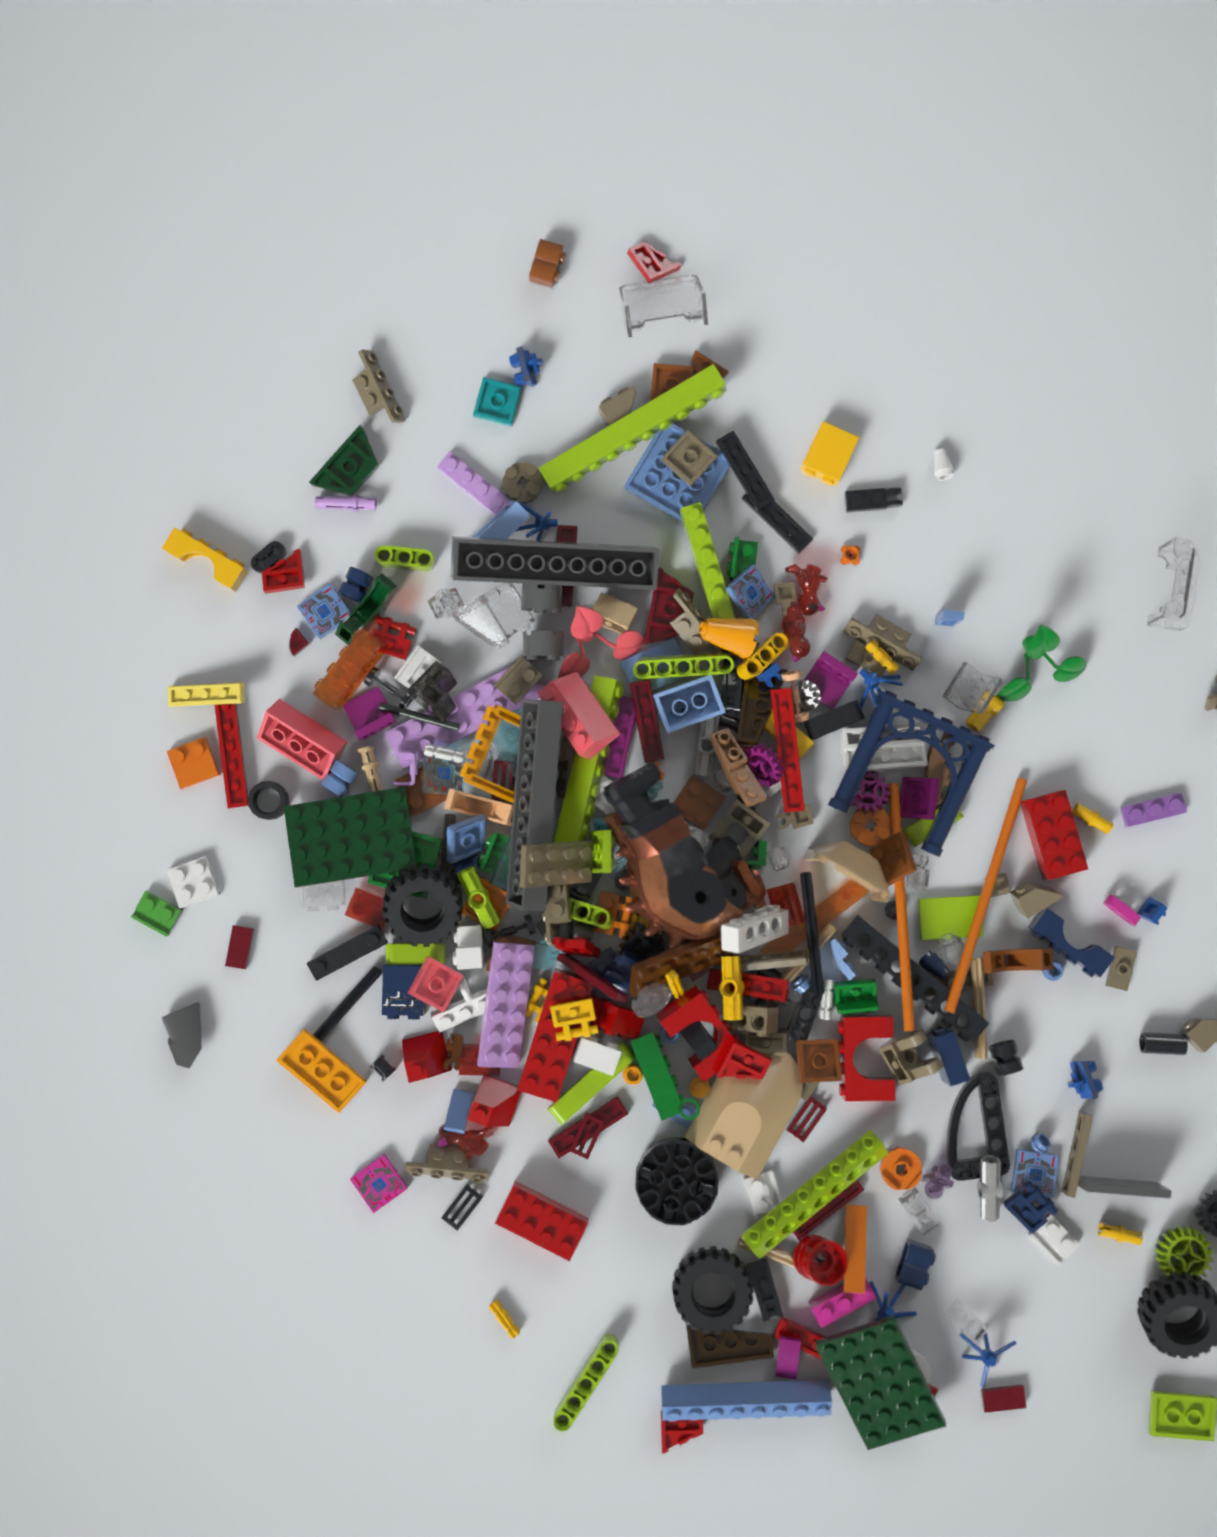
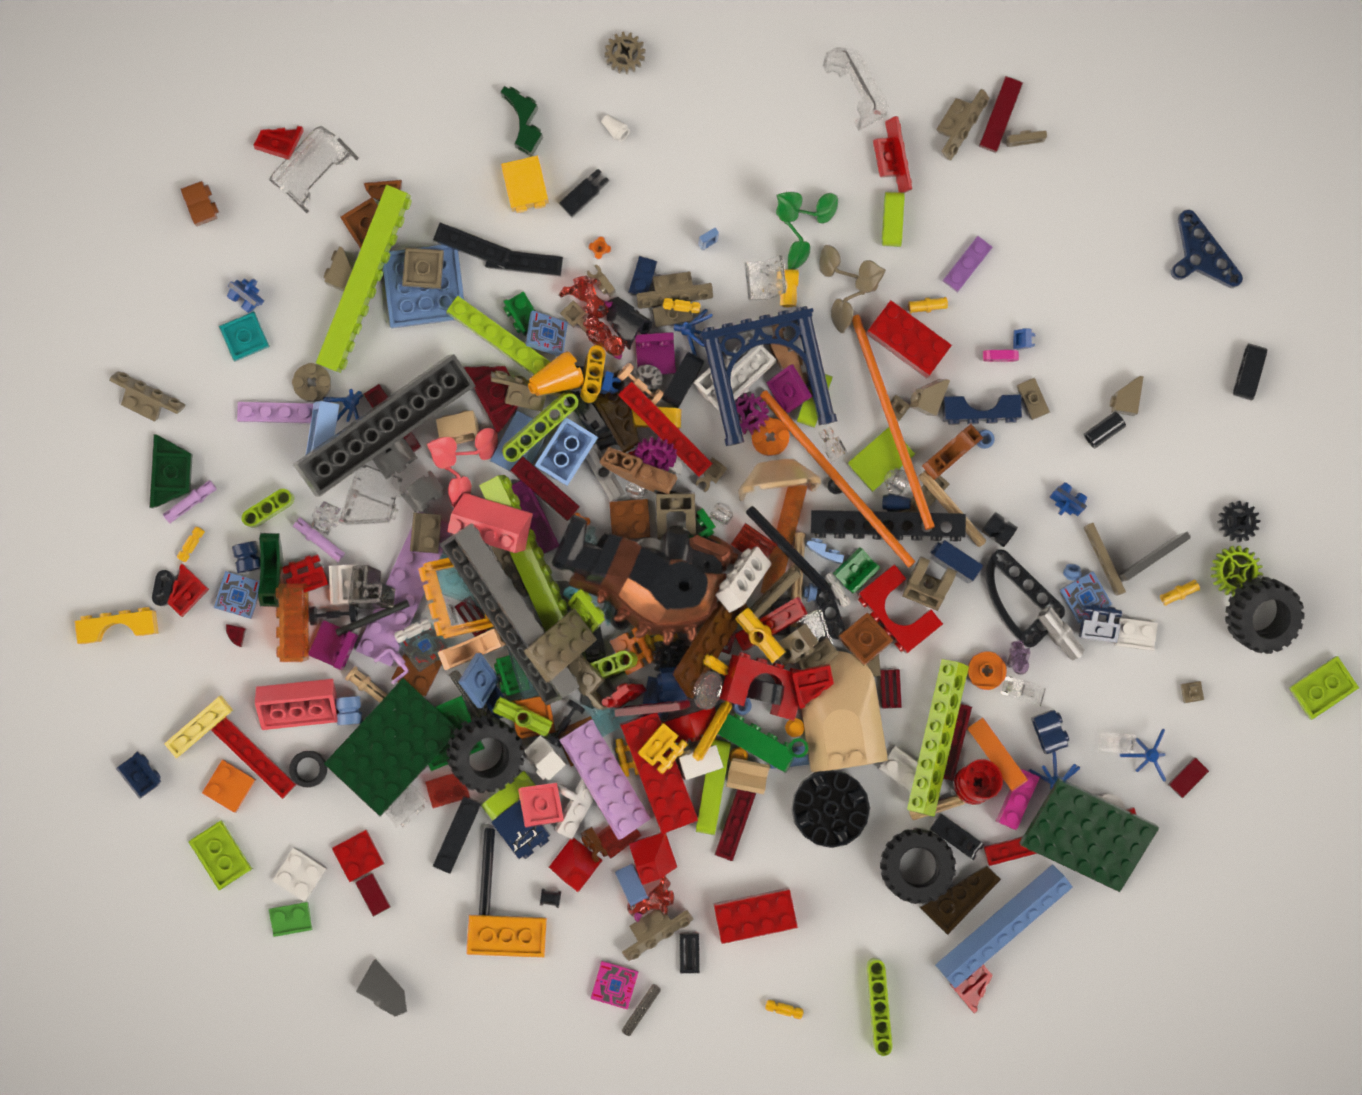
camera: 50 degrees left, 0 degrees up
(127, 696) = (139, 774): none -> dark blue bracket
(141, 814) = (220, 855): none -> lime tile
(252, 905) = (358, 855): none -> red plate
(319, 538) = (190, 544): none -> yellow axle
(384, 1222) = (641, 1010): none -> clear smoke axle
(426, 617) = (319, 540): none -> lavender pin
(593, 1119) = (735, 812): dark red tile -> none
(627, 1037) = (712, 731): none -> yellow axle
(627, 1097) = (747, 776): none -> tan panel
(788, 1357) = (1010, 871): magenta slope -> none
(826, 634) = (627, 321): none -> black panel
(830, 588) = (604, 284): none -> dark tan plate
(868, 606) = (642, 276): none -> dark blue plate
(879, 391) = (528, 136): none -> dark green arch
(894, 858) = (805, 448): dark orange plate -> none
(991, 412) = (630, 48): none -> dark tan gear
(1063, 757) = (866, 282): none -> dark tan plant
(1063, 1327) = (1192, 692): none -> dark tan tile
(1119, 722) = (893, 219): none -> lime beam
(1160, 669) = (892, 156): none -> red bracket

